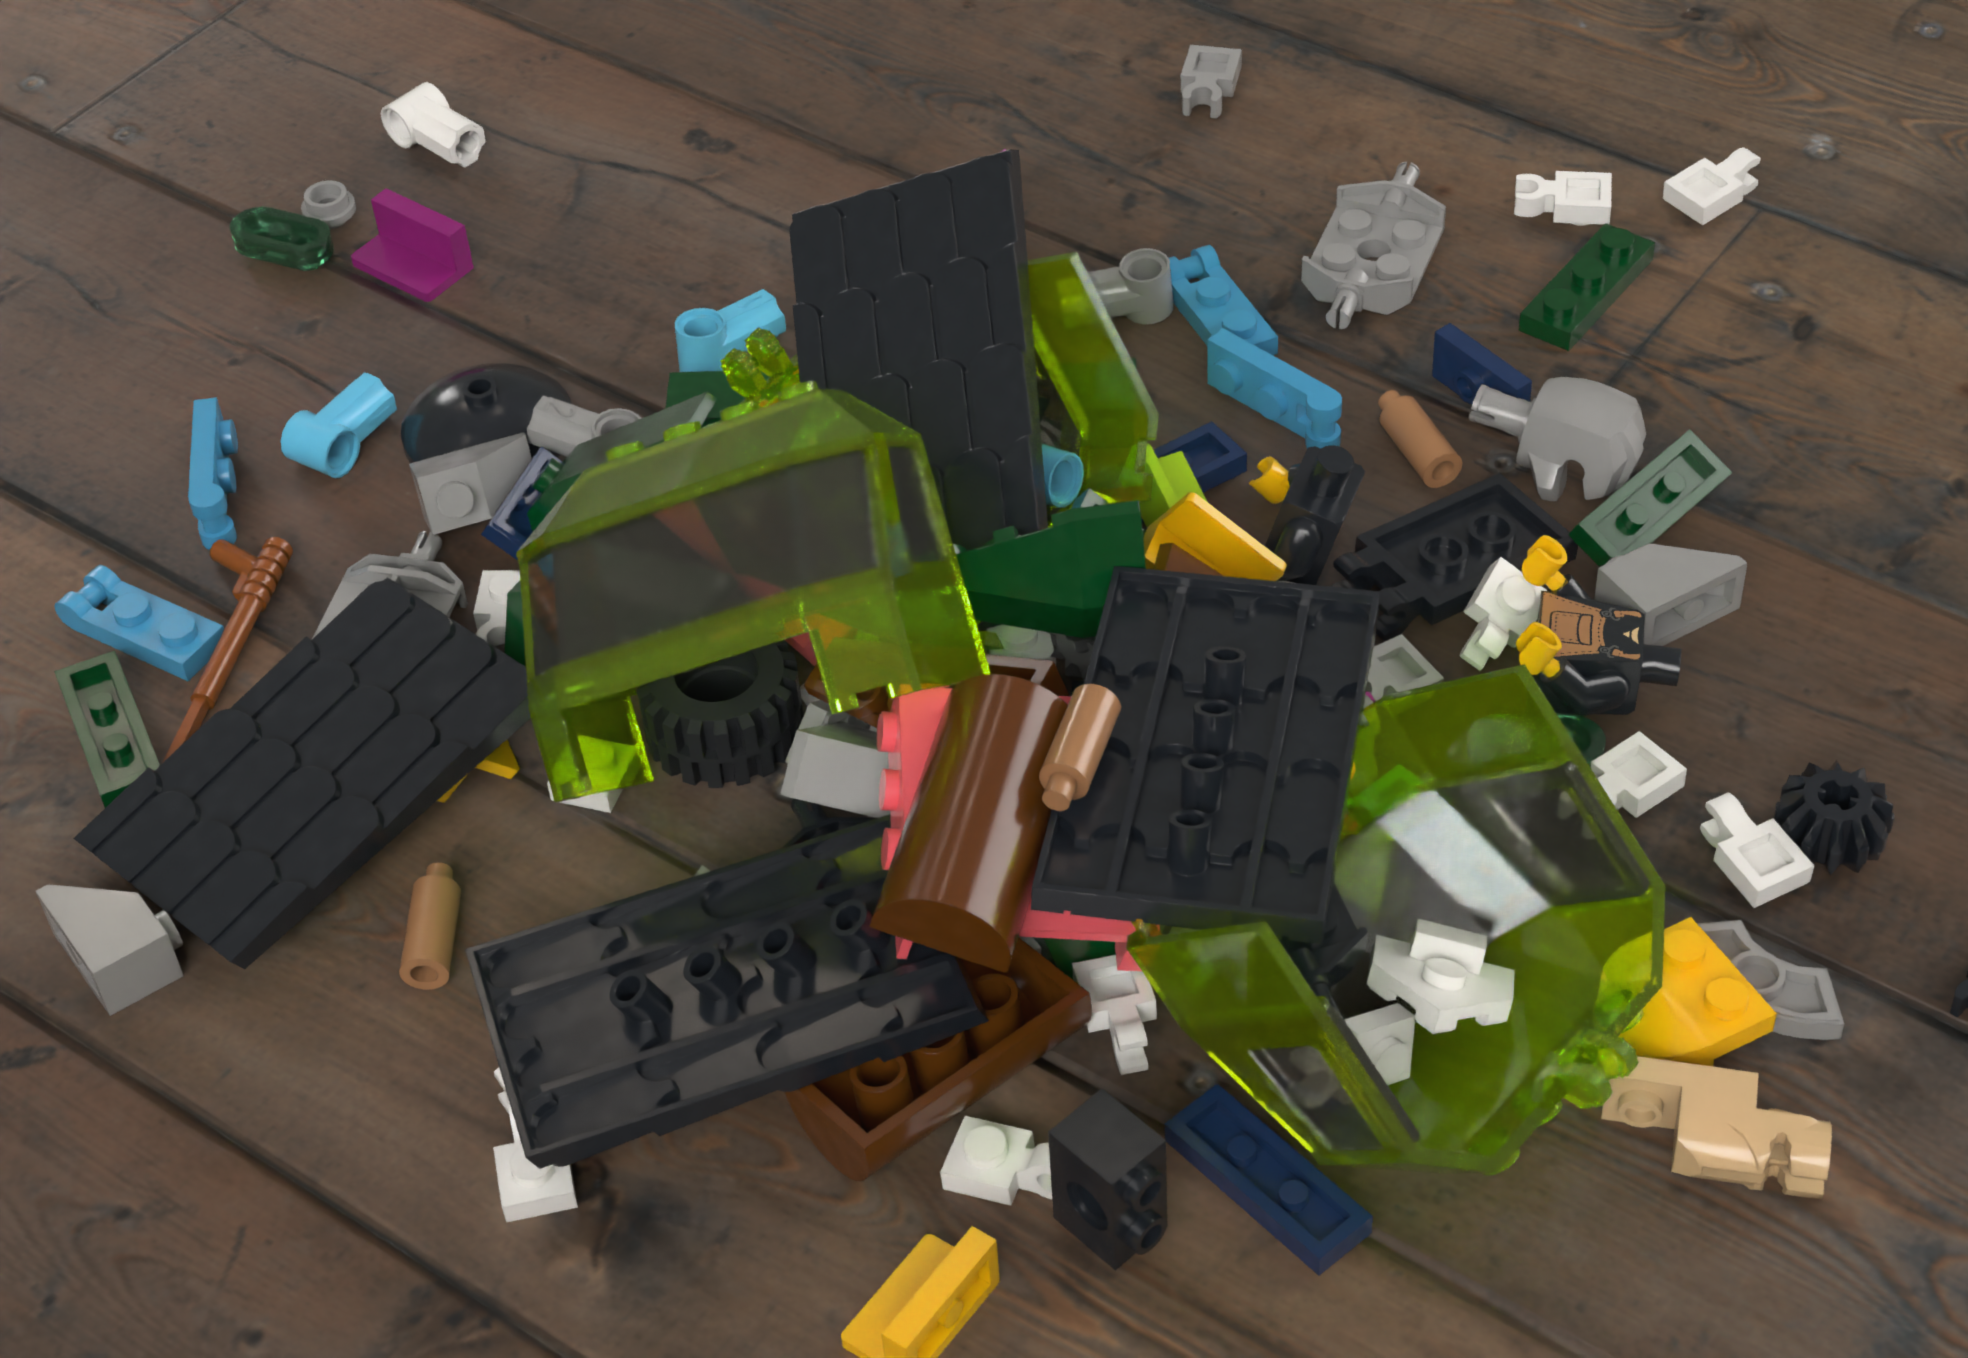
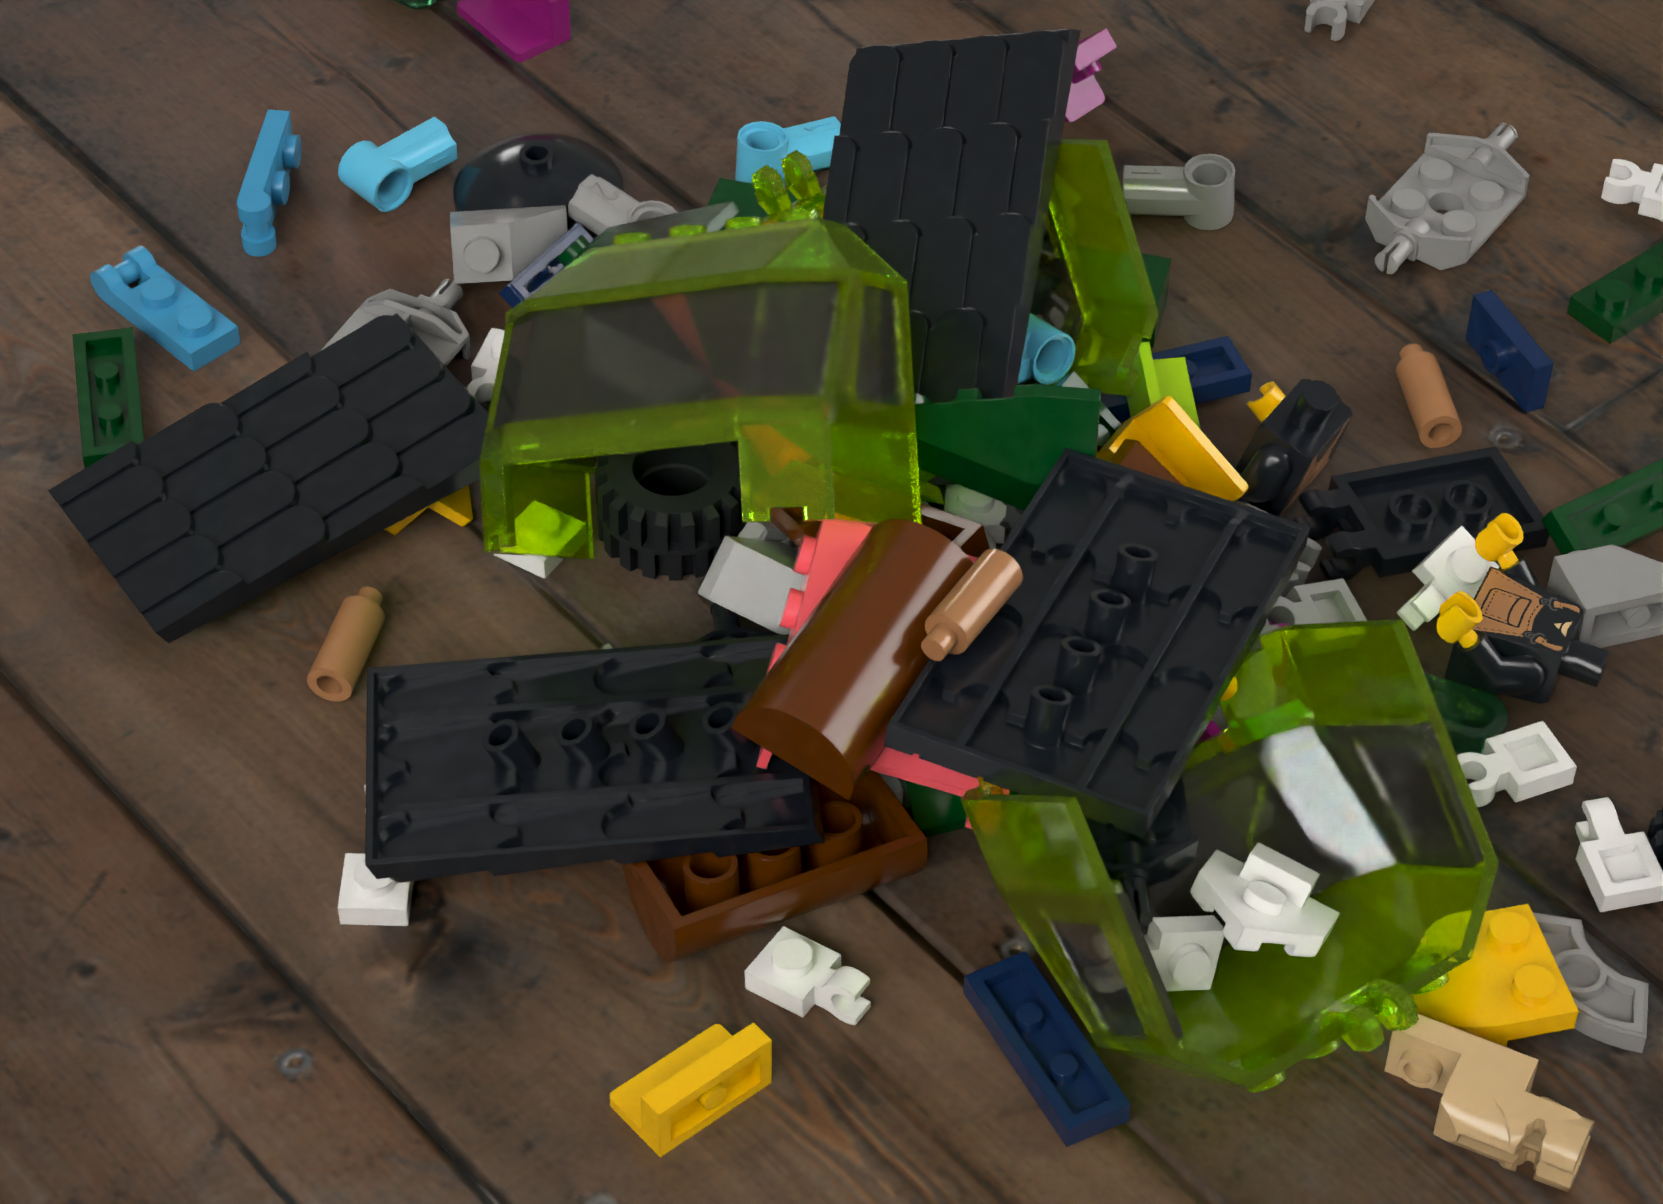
camera: 10 degrees right, 0 degrees up
(113, 941) = (59, 592): light grey slope -> none
(253, 591) = (275, 301): dark orange piece -> none
(1109, 1179) = (892, 1011): black brick -> none
(1119, 1004) = (957, 860): white plate -> none
(1216, 301) = (1275, 230): dark azure plate -> none
(1274, 389) = (1301, 318): dark azure plate -> none
(1566, 423) = (1574, 410): light grey piece -> none

